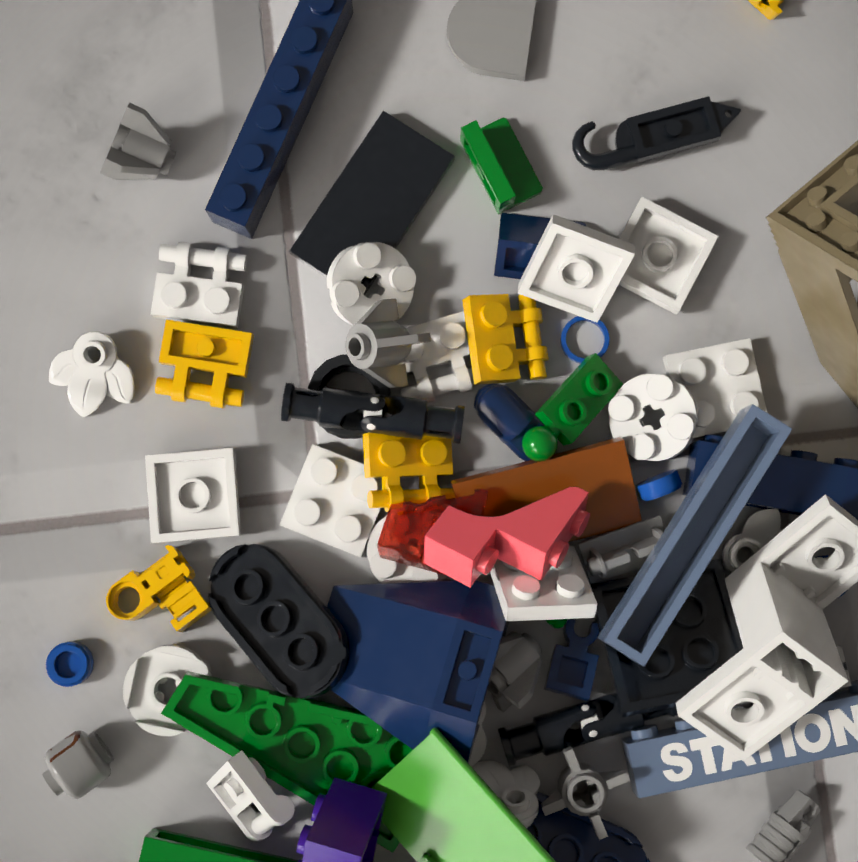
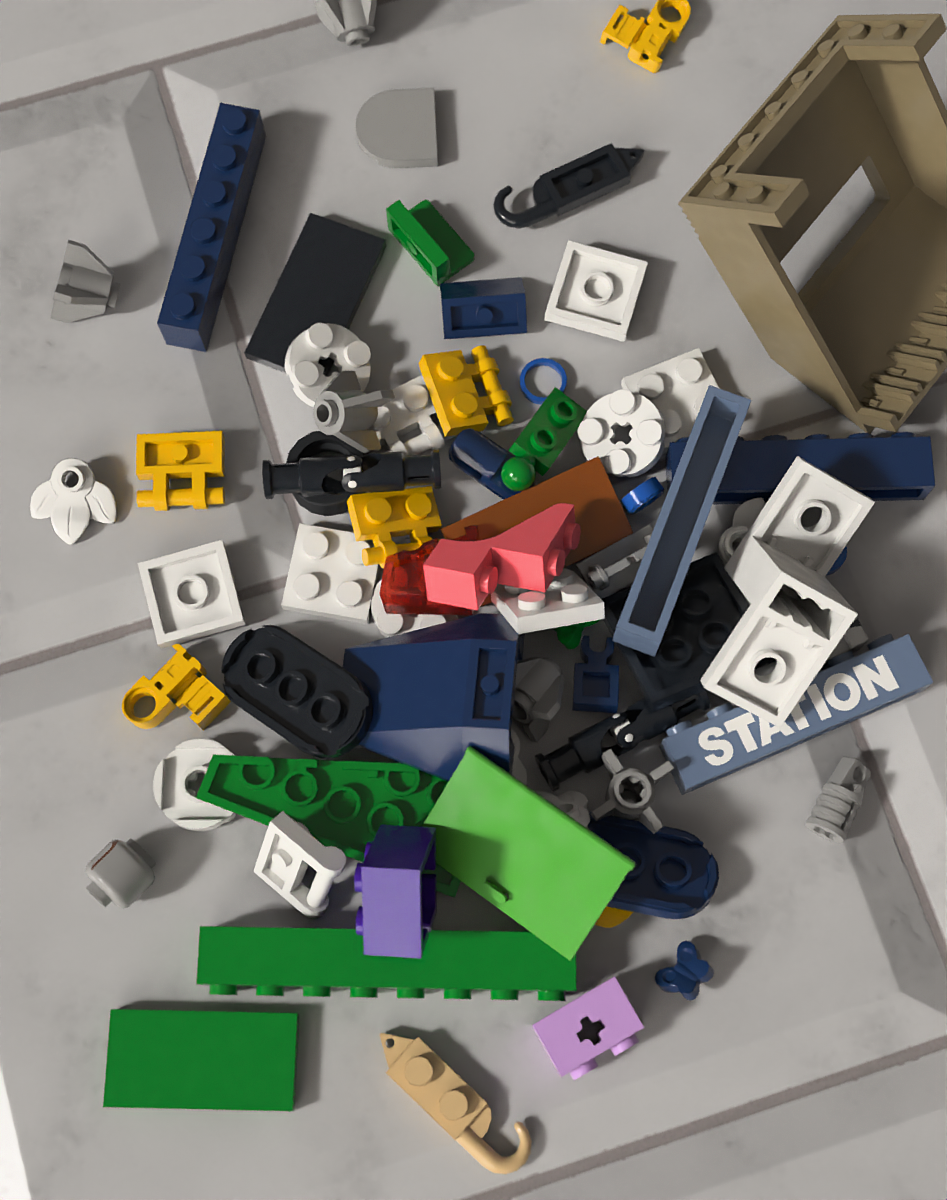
camera: 10 degrees left, 10 degrees down
(69, 664) = (95, 781): blue tile -> none
(194, 298) = (164, 411): white plate -> none
(576, 268) = (519, 311): white plate -> none

